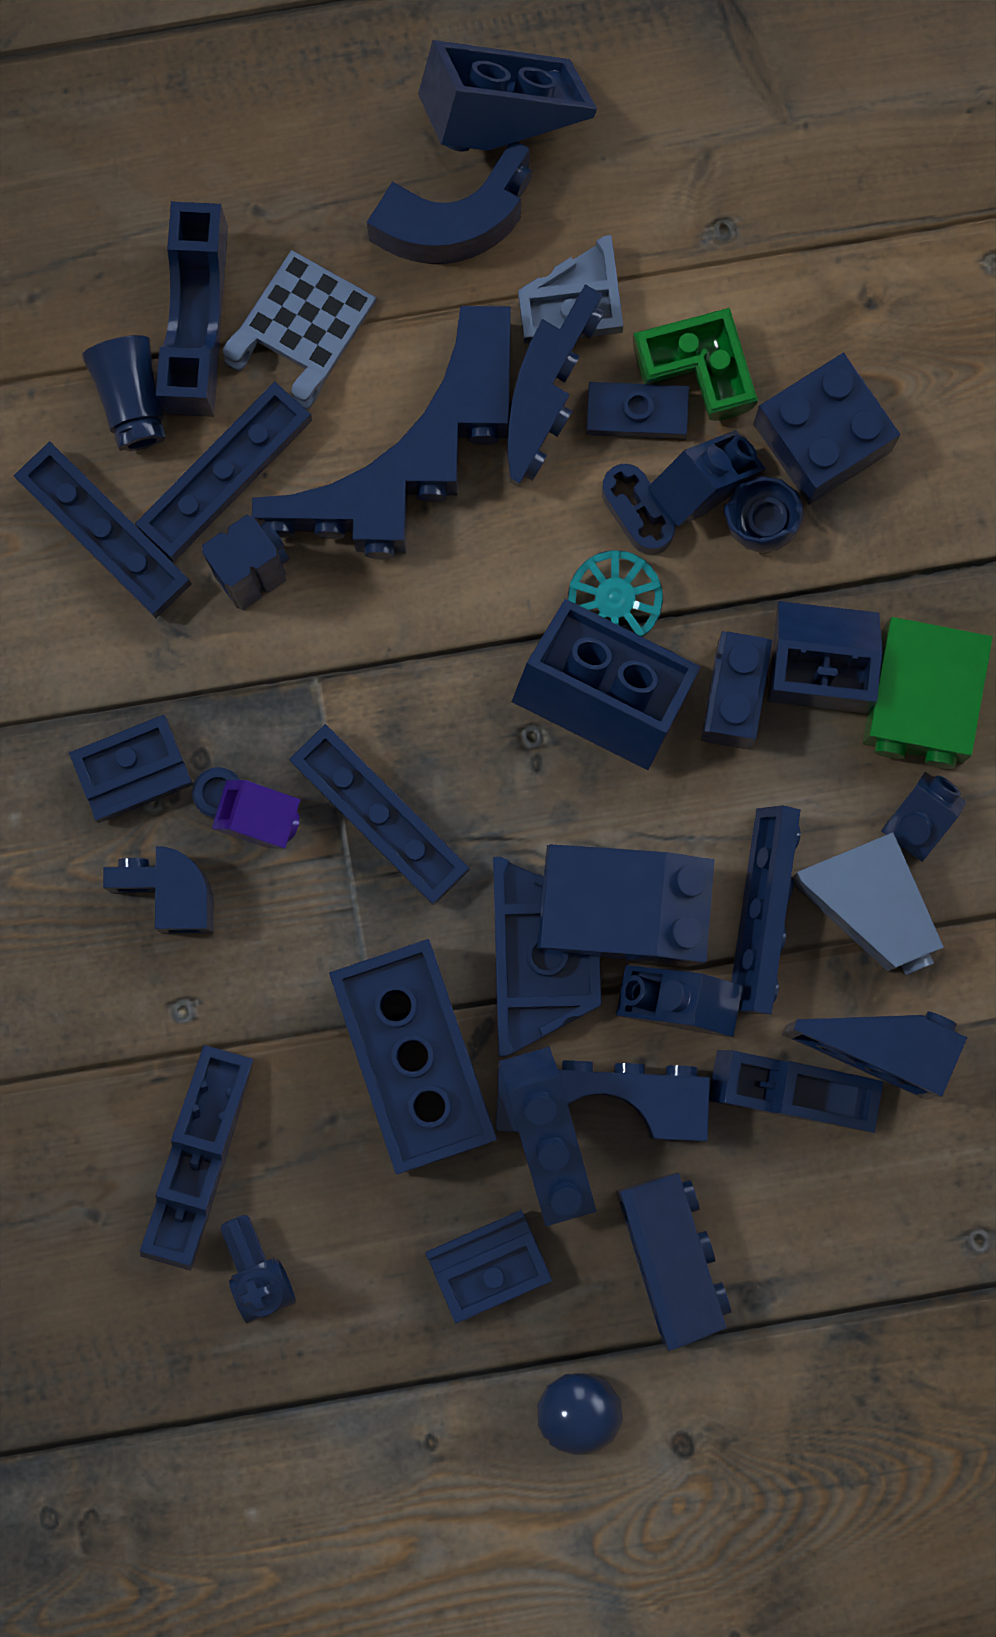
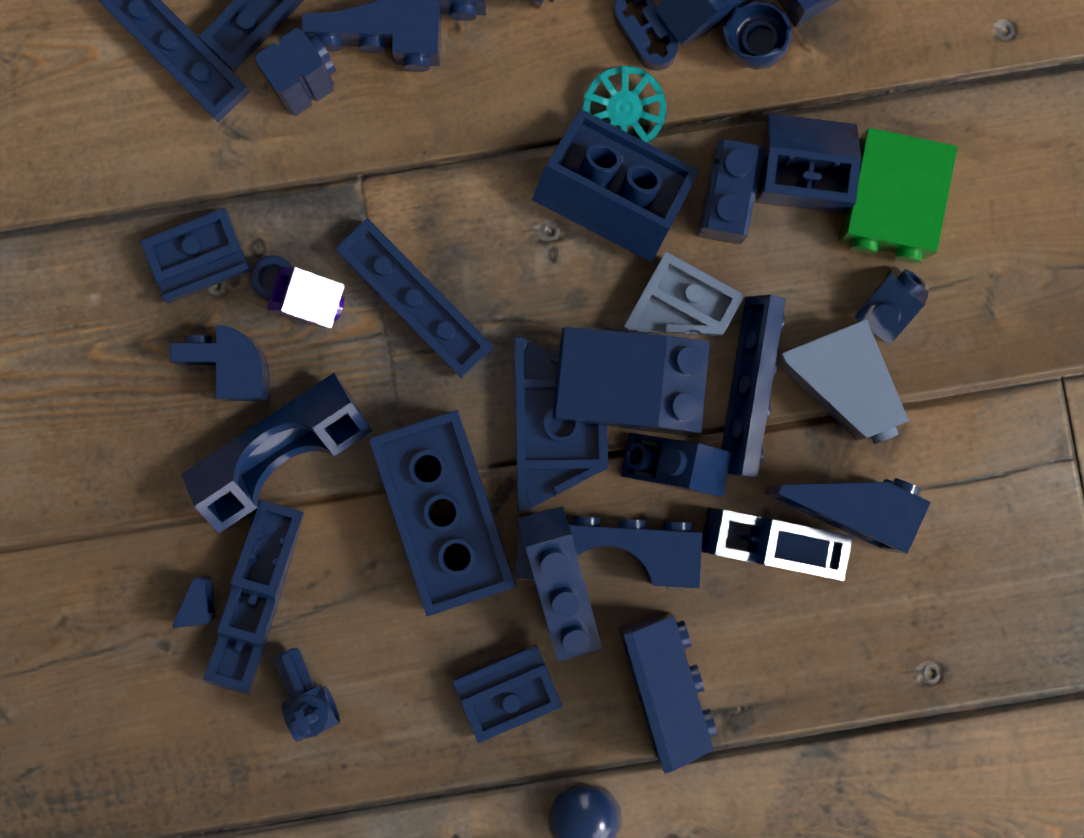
camera: 10 degrees left, 5 degrees up
(132, 1166) = (197, 605): none -> dark blue slope
(171, 1020) = (231, 478): none -> dark blue arch
(685, 815) = (683, 302): none -> sand blue wing

